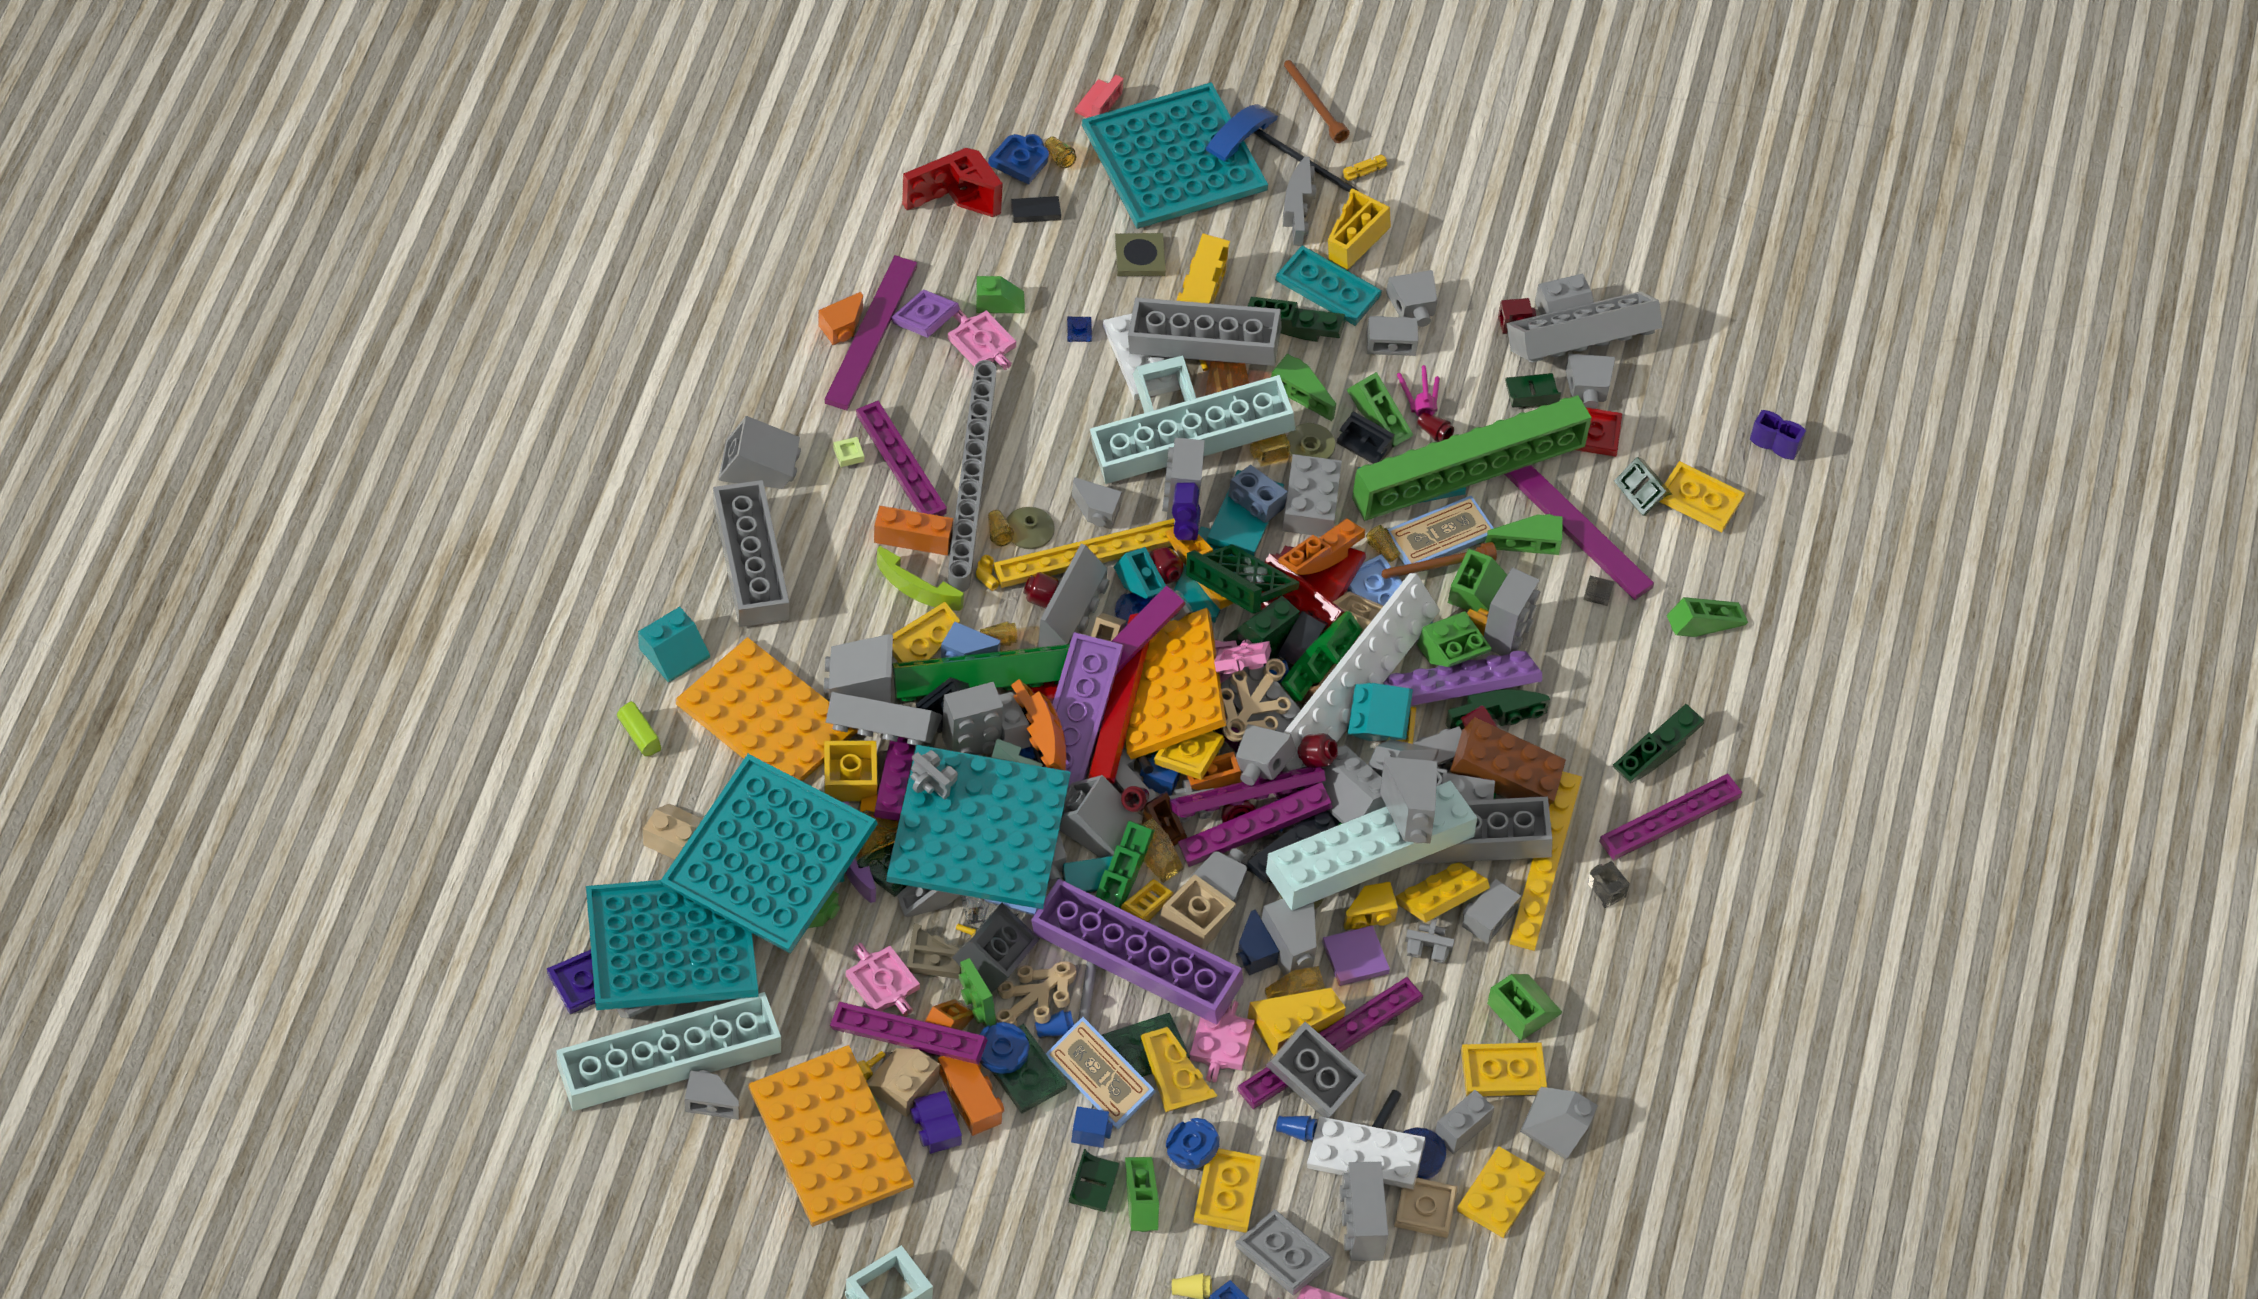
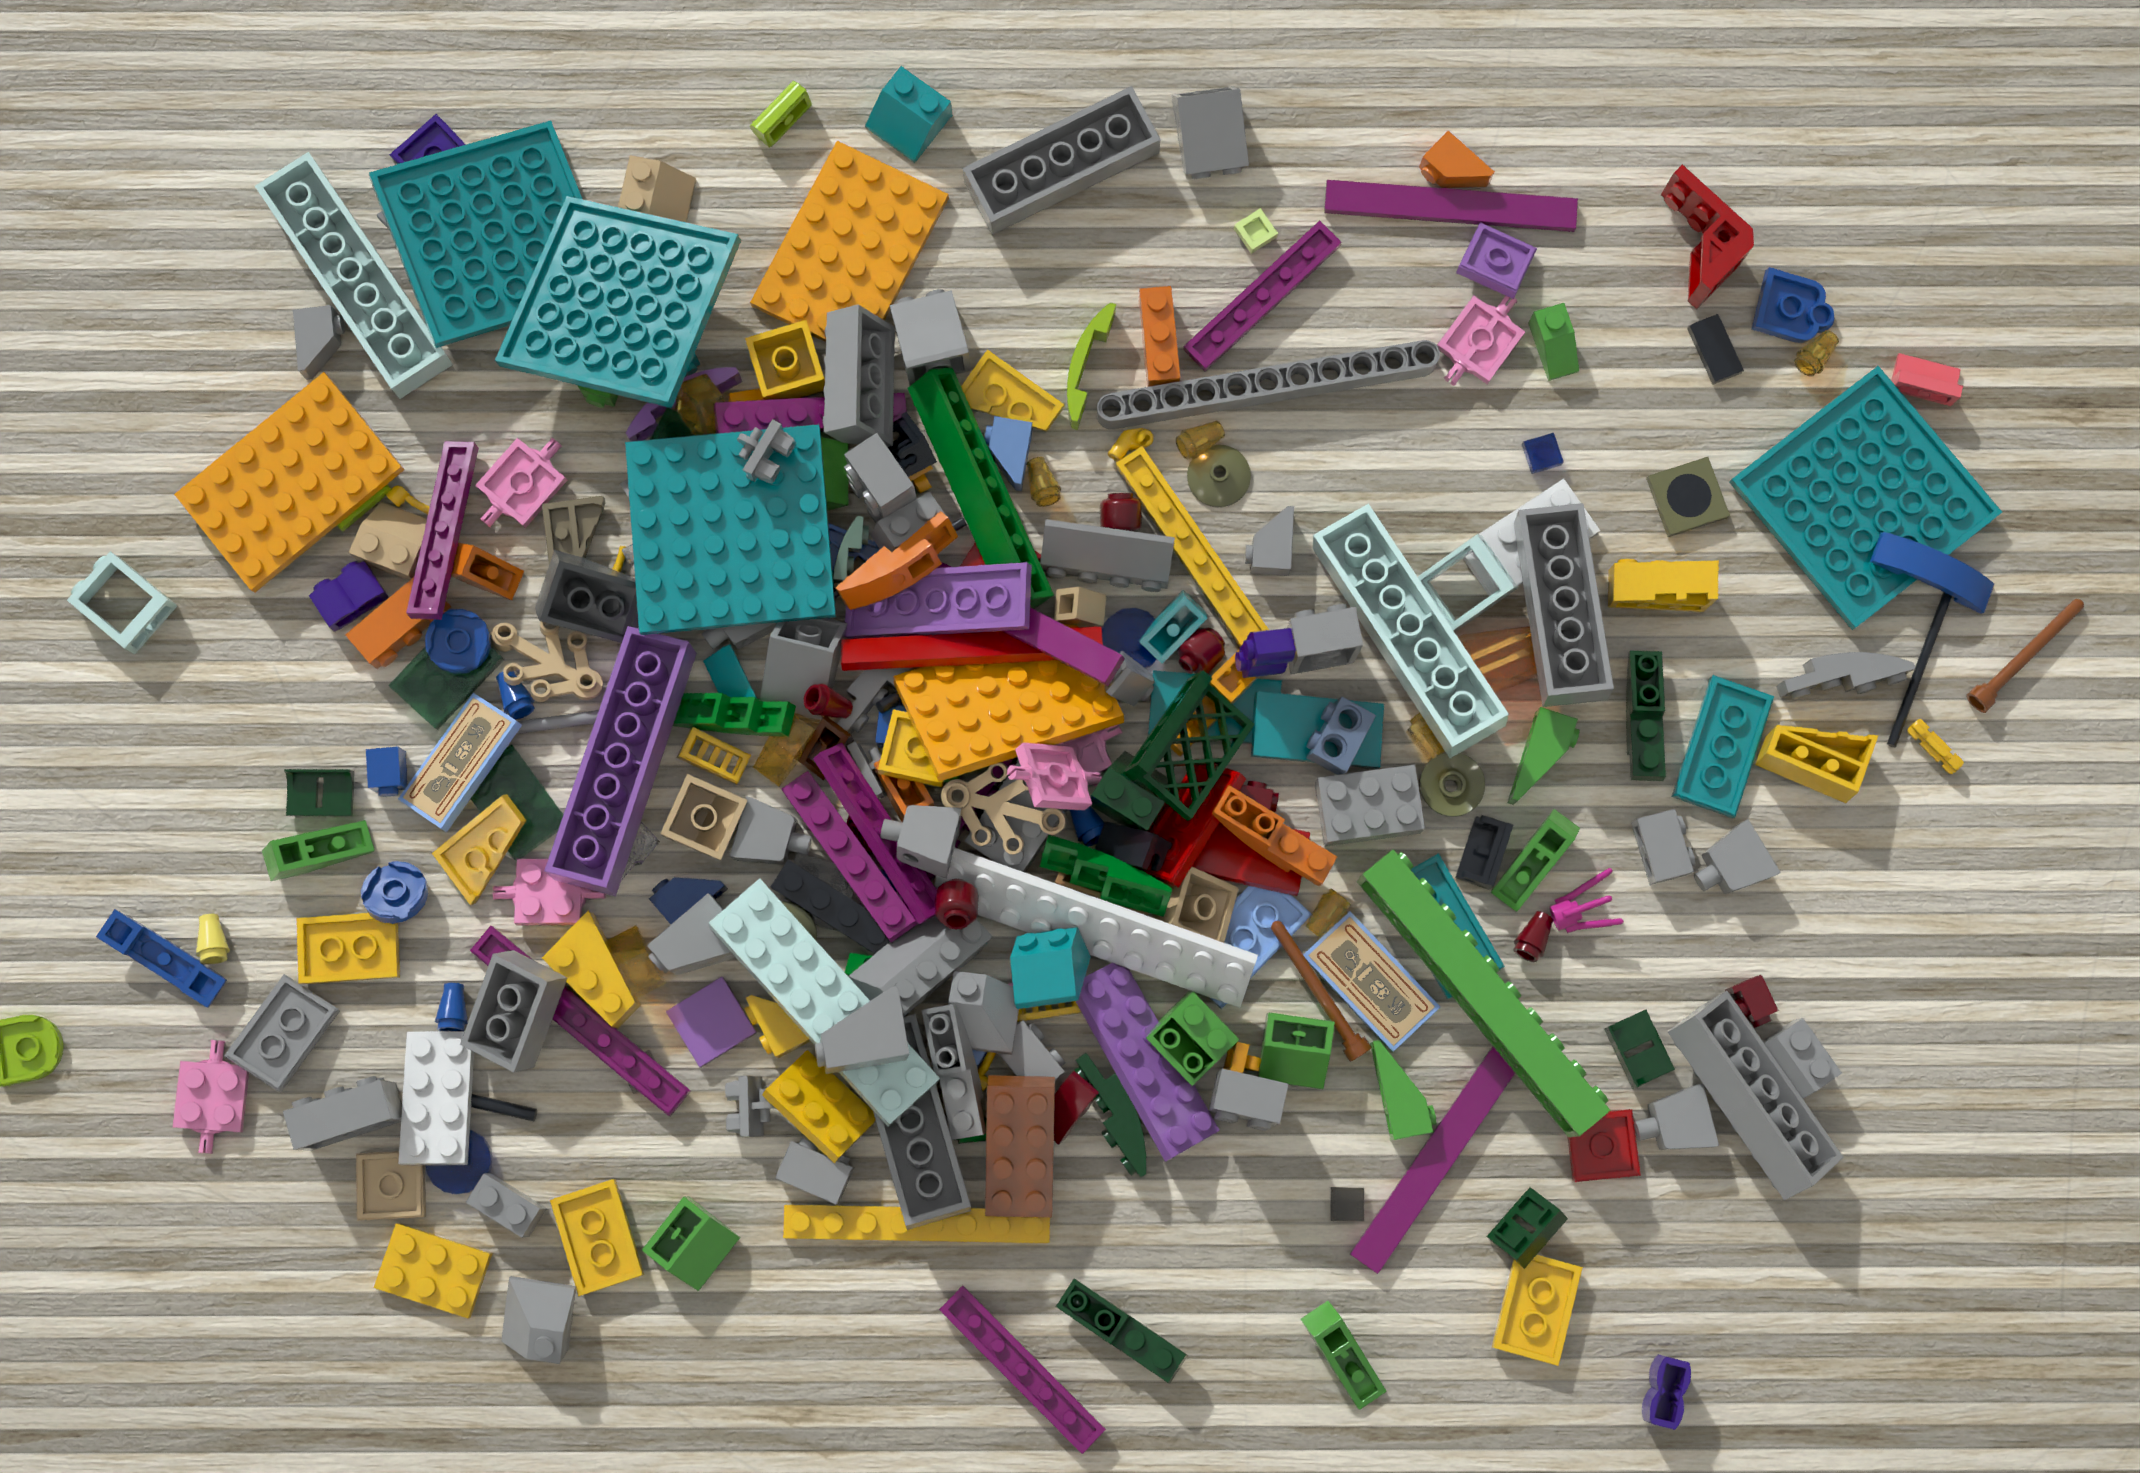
camera: 80 degrees right, 25 degrees up
(977, 994) = (512, 593): bright green plate -> none
(1608, 883) = (887, 1318): clear smoke brick -> none

